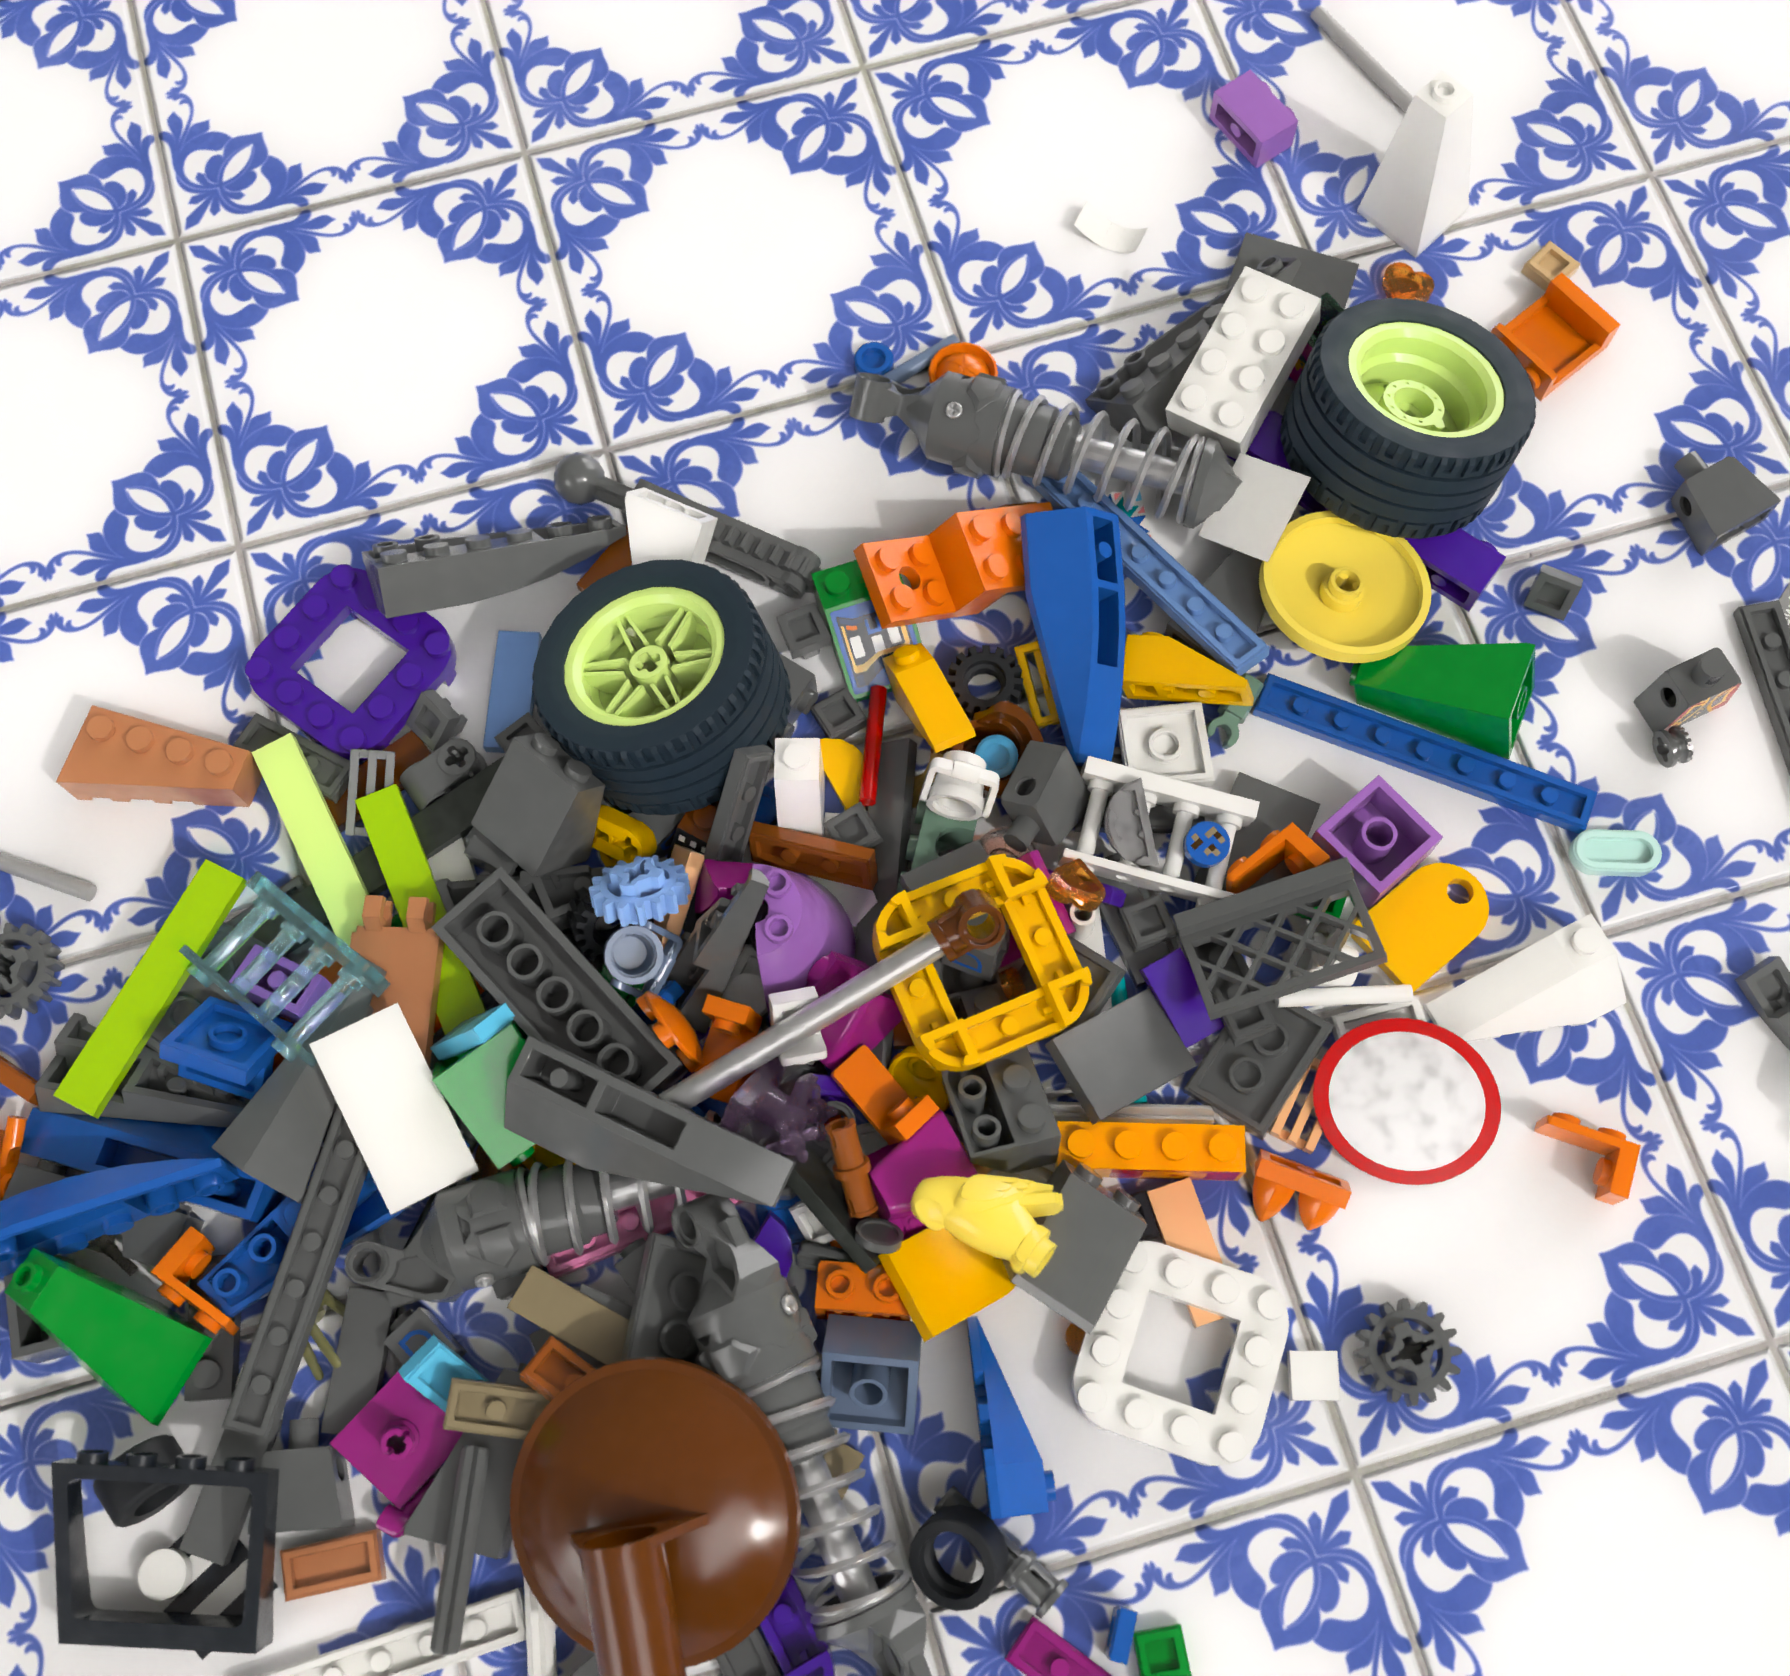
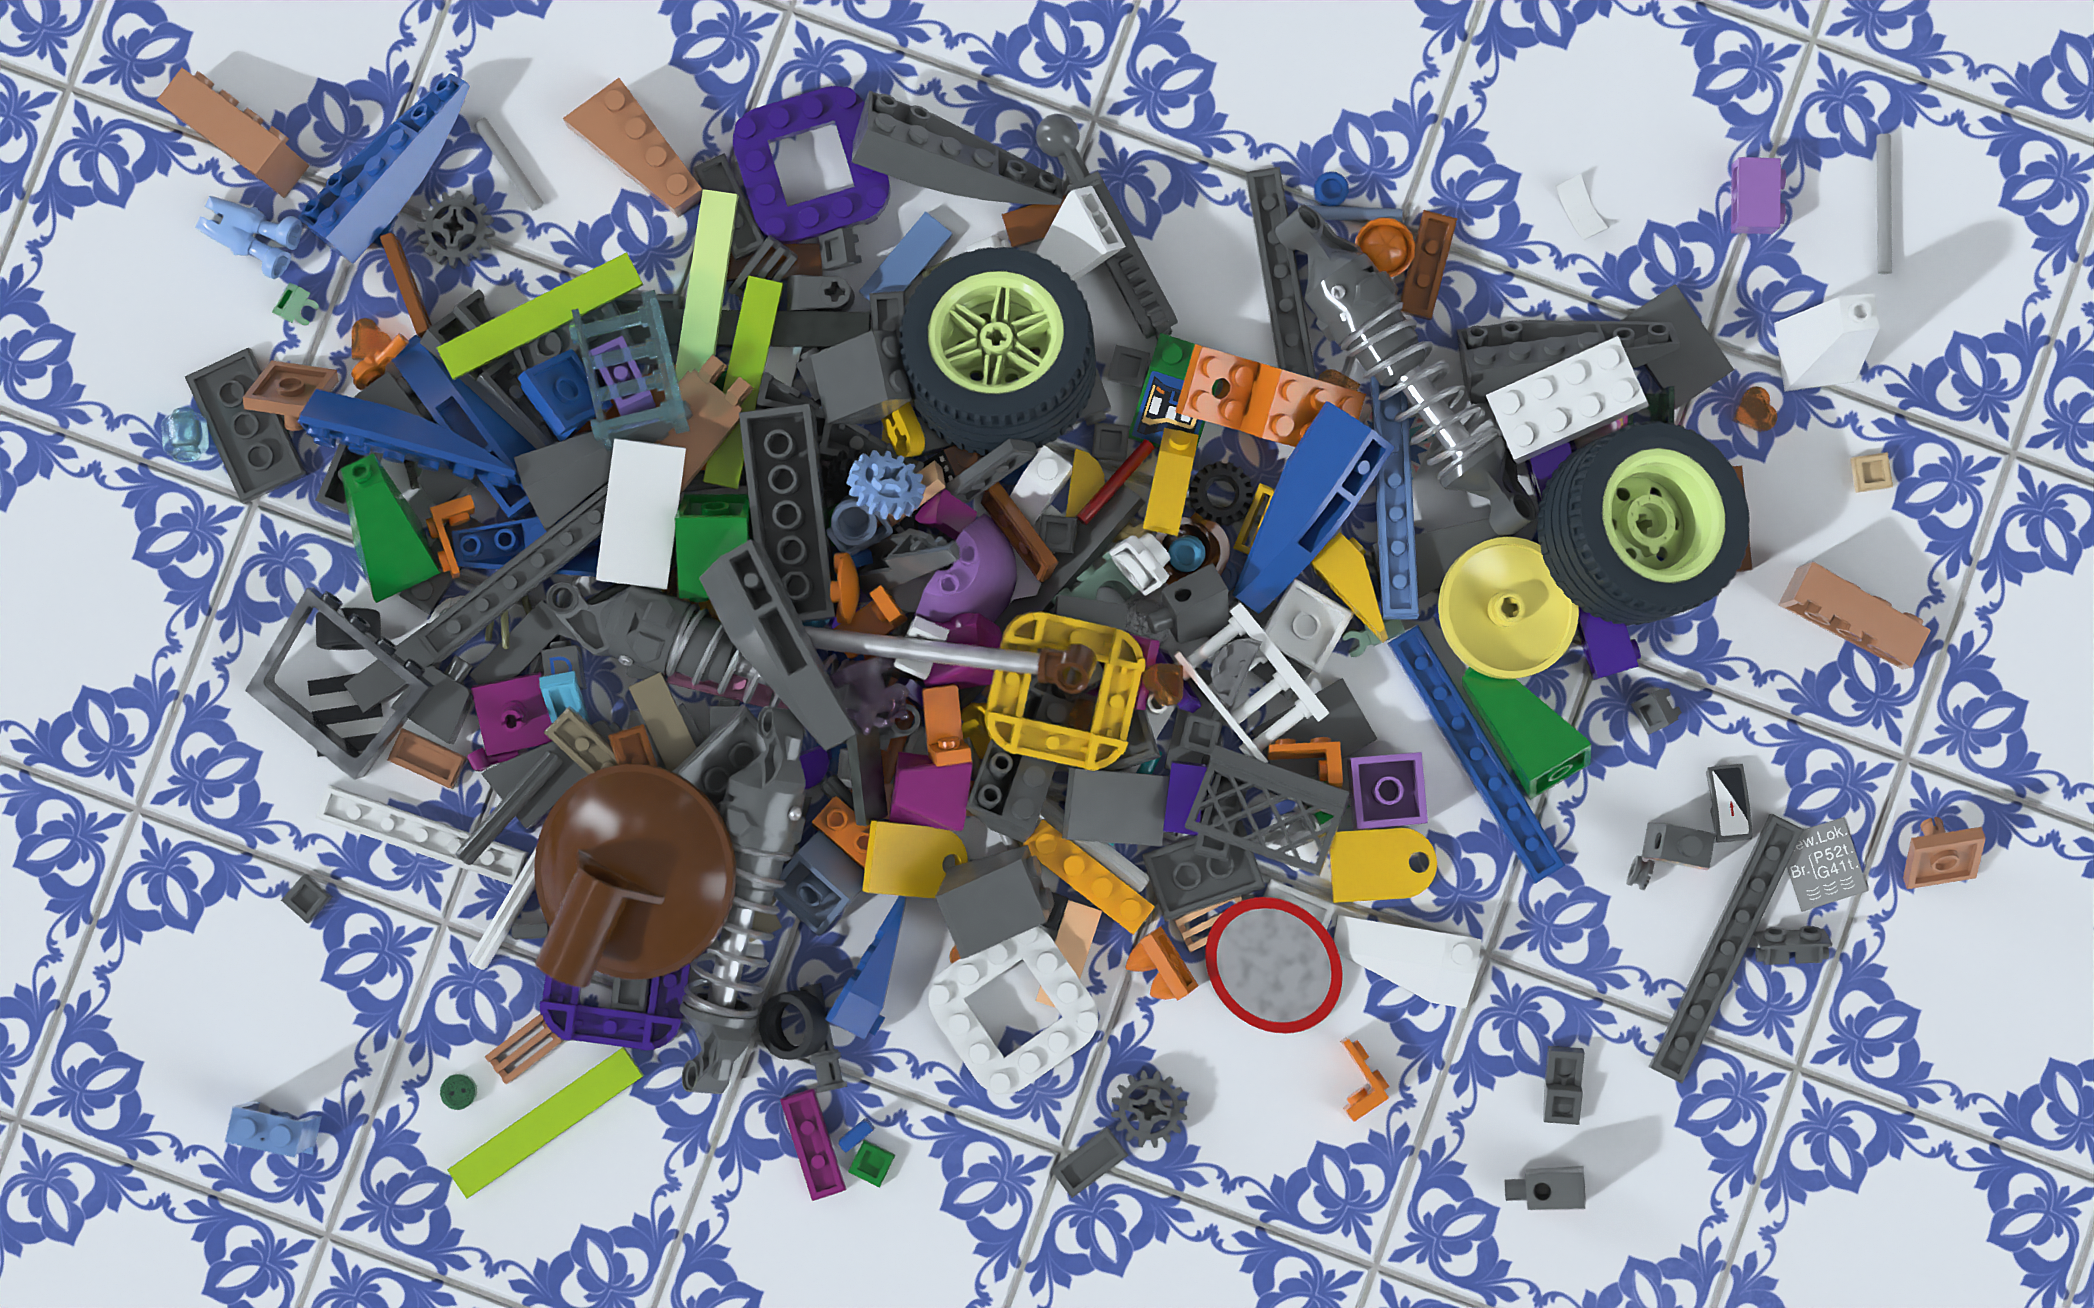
camera: 30 degrees right, 15 degrees up
(164, 1574) = (326, 692): white tile -> none
(473, 1032) = (720, 499): medium azure tile -> none
(851, 1167) = (891, 758): dark orange pin -> none
(876, 455) = (1279, 273): none -> dark grey tile
(878, 1235) = (879, 809): dark grey piece -> none
(992, 1216) = (951, 851): light yellow animal -> none
(1014, 362) = (1428, 264): none -> dark orange tile
(1206, 844) = (1273, 715): blue tile -> none
(1258, 509) = (1490, 513): white sticker -> none
(1313, 1376) = (1083, 1080): white tile -> none
(1347, 996) = (1293, 878): white bar -> none
(1391, 1463) = (1089, 1162): none -> dark grey tile
(1557, 335) = (1818, 528): orange panel -> none
(1615, 852) = (1543, 911): light aqua tile -> none
(1648, 383) = (1855, 615): none -> nougat wedge
(1691, 621) = (1729, 803): none -> slope
(1719, 500) = (1826, 731): dark grey torso -> none

